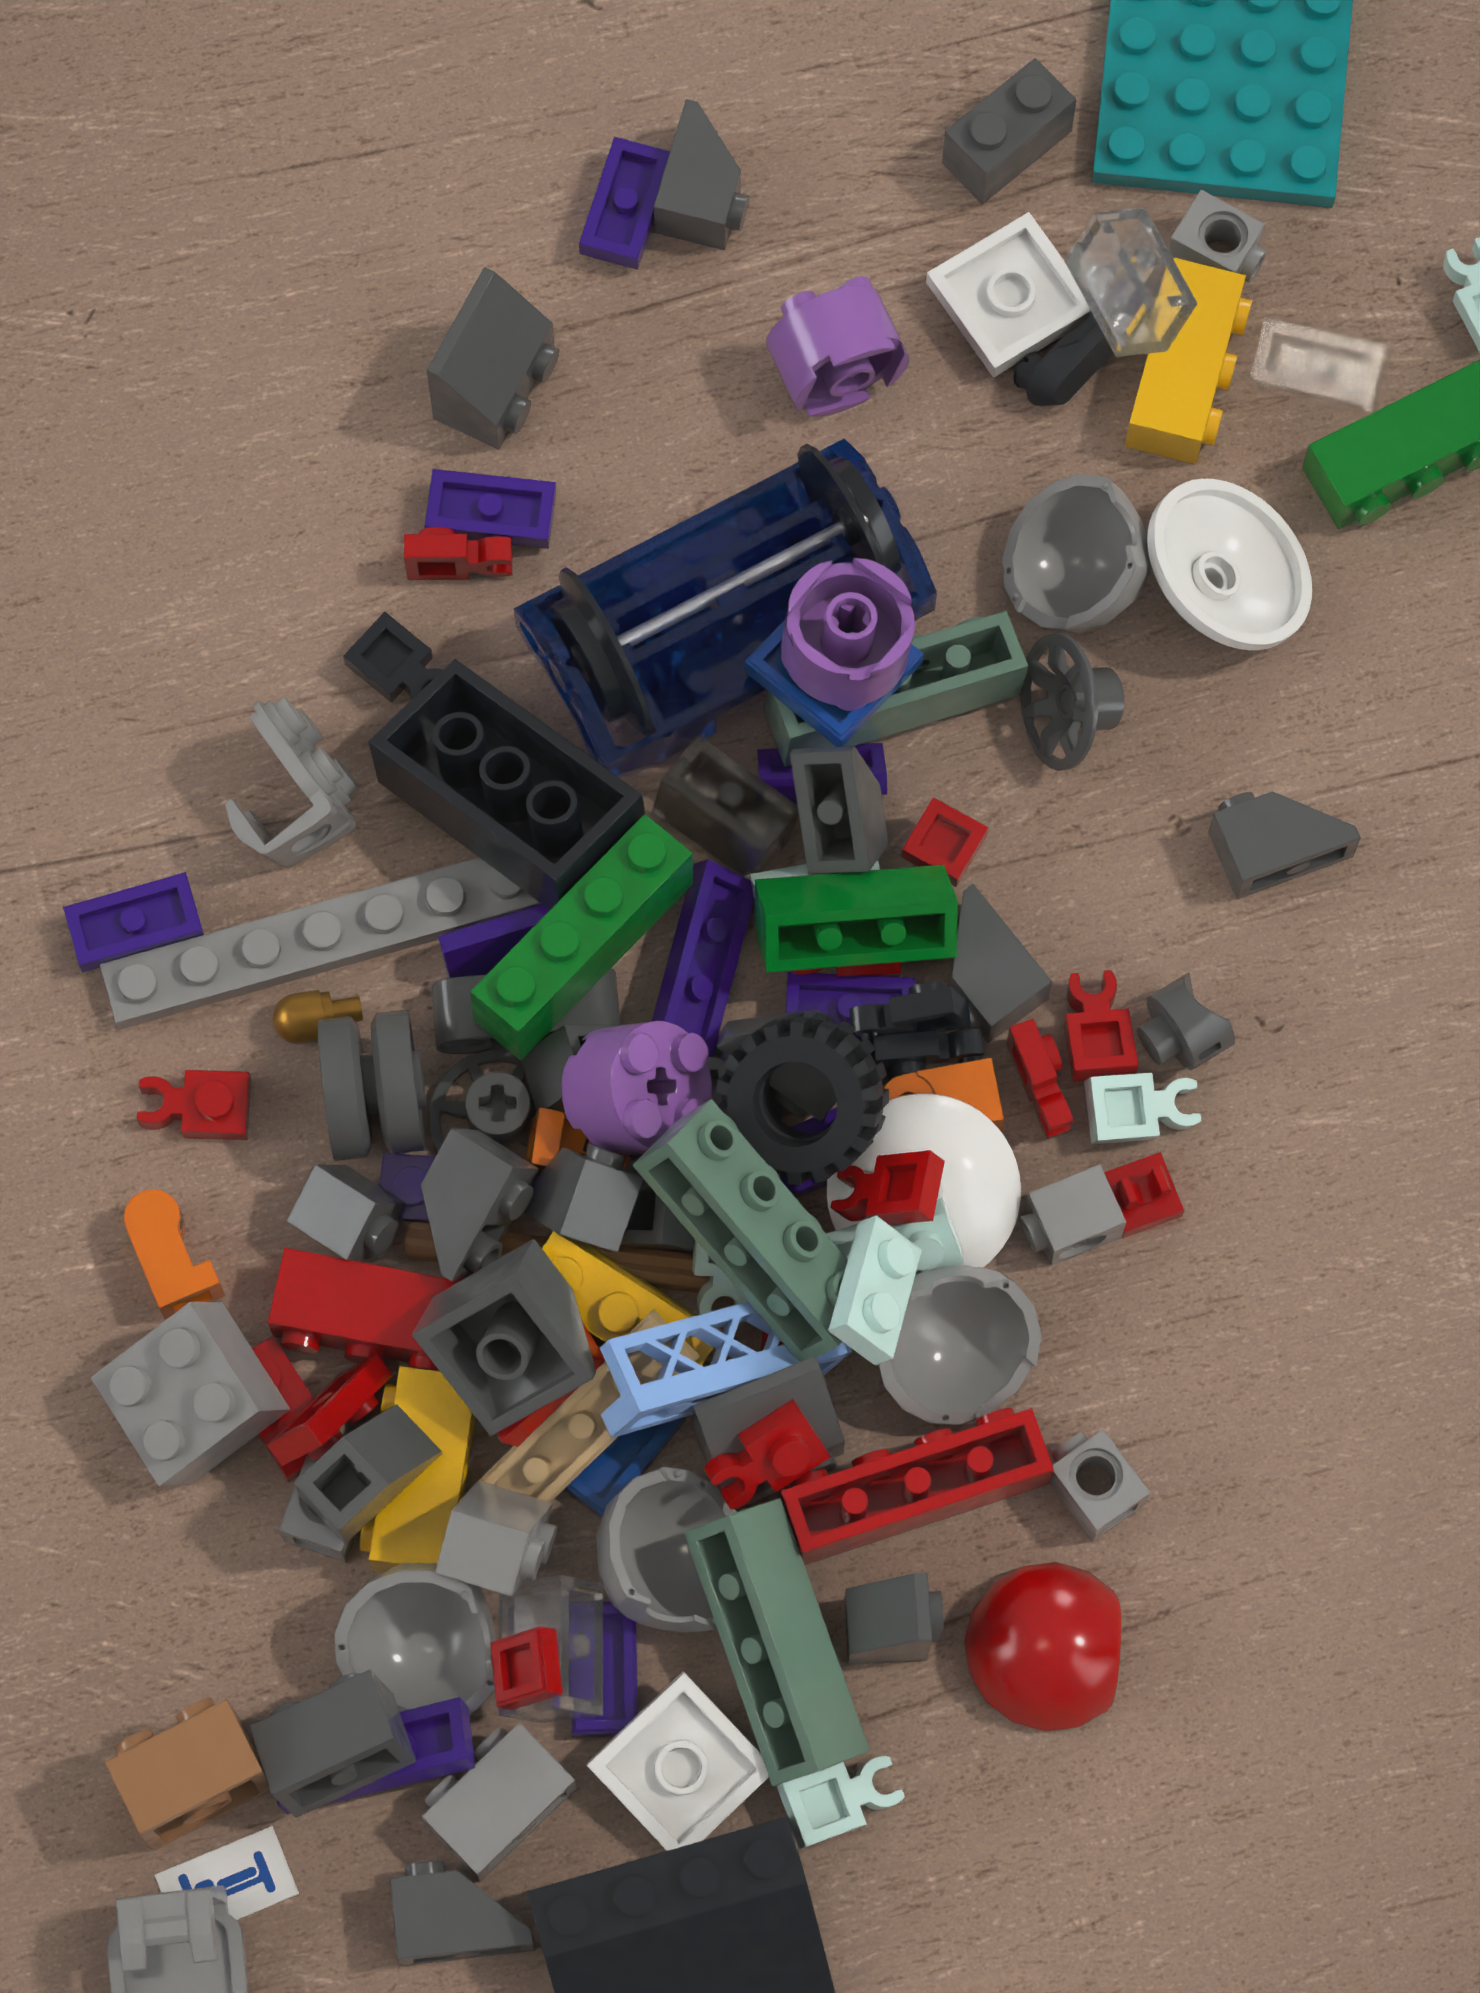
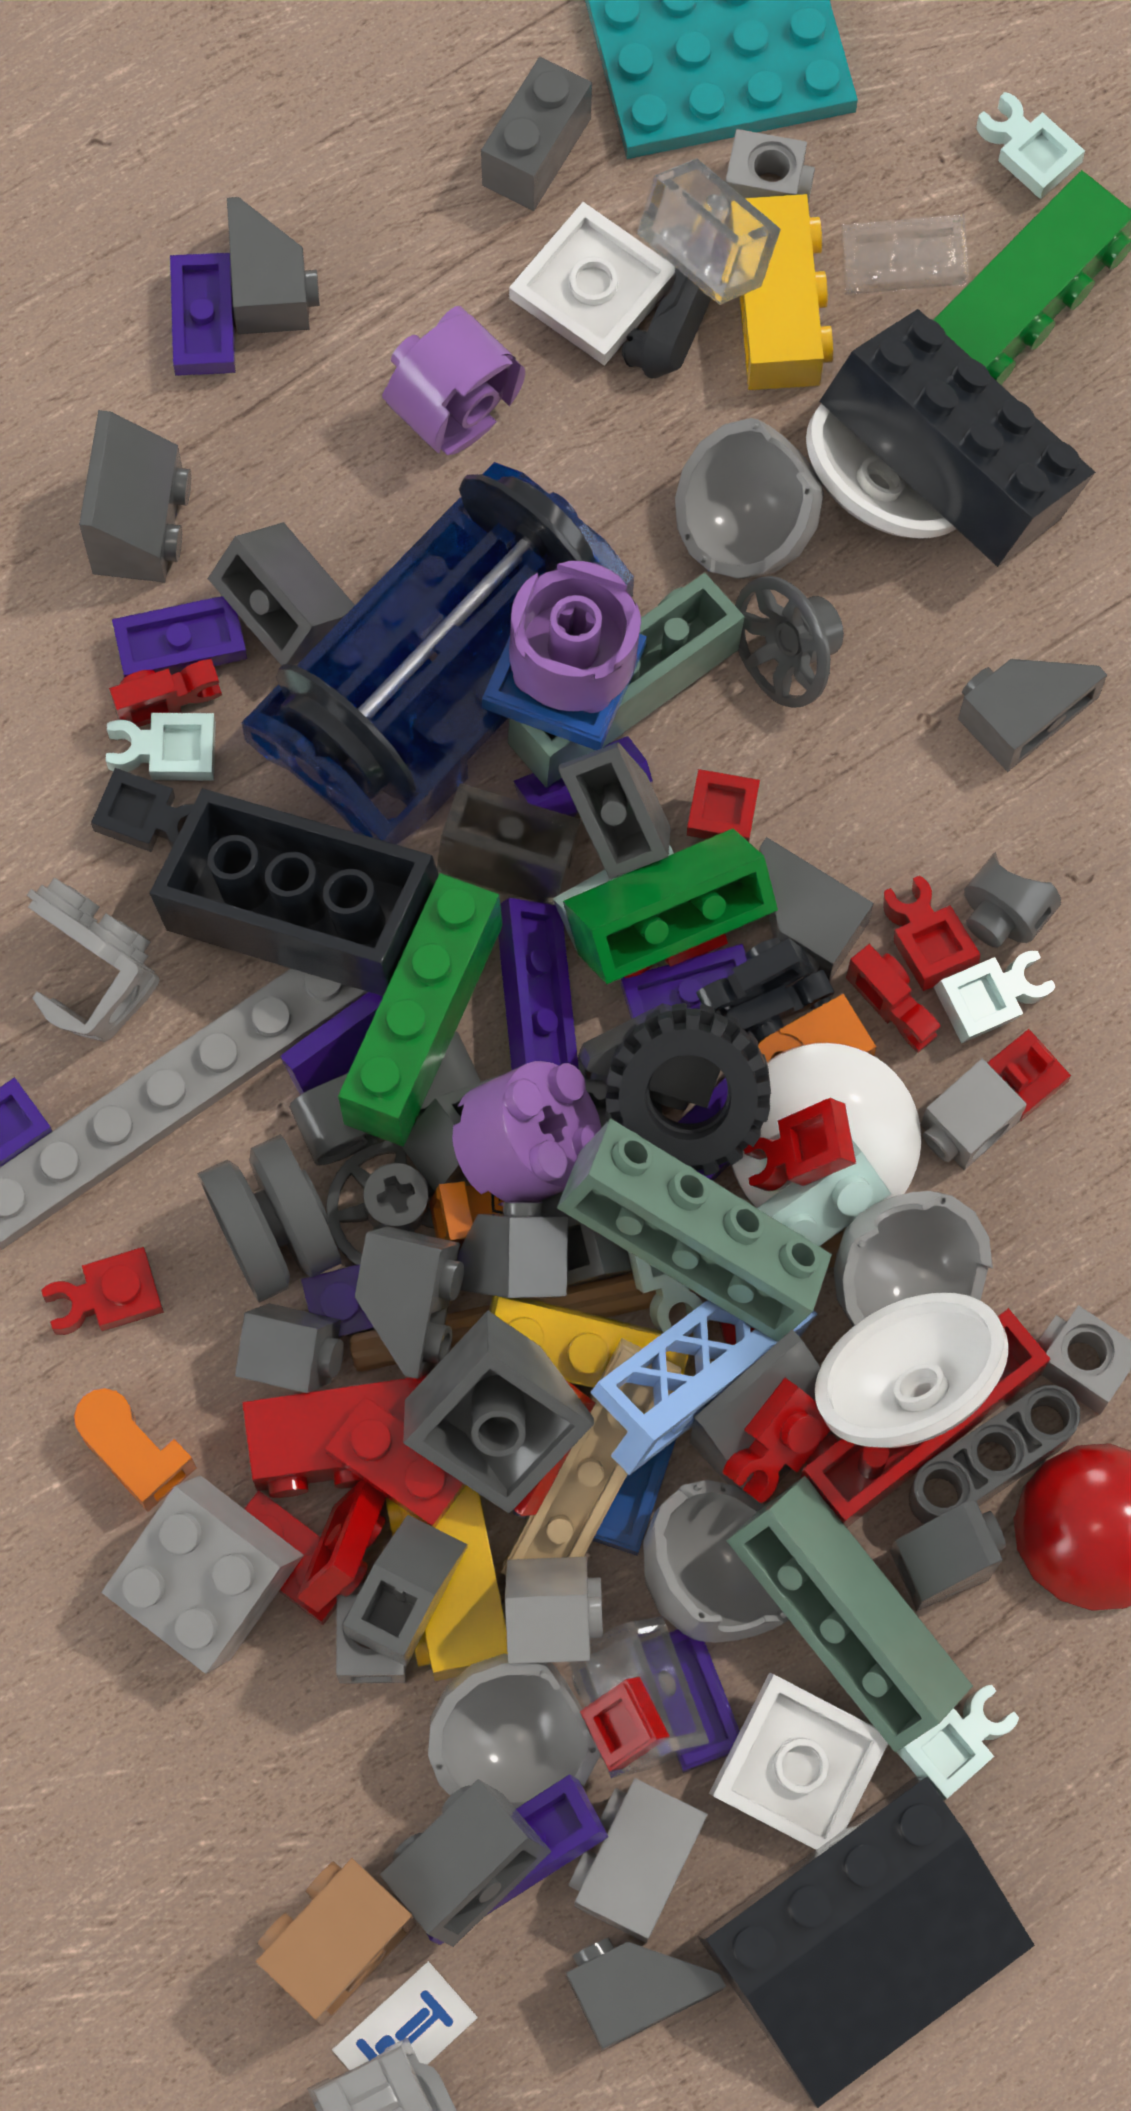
camera: 20 degrees left, 0 degrees up
(298, 1014) = (174, 1175): pearl gold cylinder -> none
(385, 1331) = (374, 1450): none -> red plate
(447, 611) = (175, 747): none -> light aqua plate
(599, 494) = (280, 591): none -> dark grey brick
(875, 1290) = (827, 1247): light aqua plate -> none
(911, 1432) = (912, 1370): none -> white dish
(996, 1522) = (1015, 1433): none -> dark grey beam
(1301, 559) = (957, 436): none -> black brick

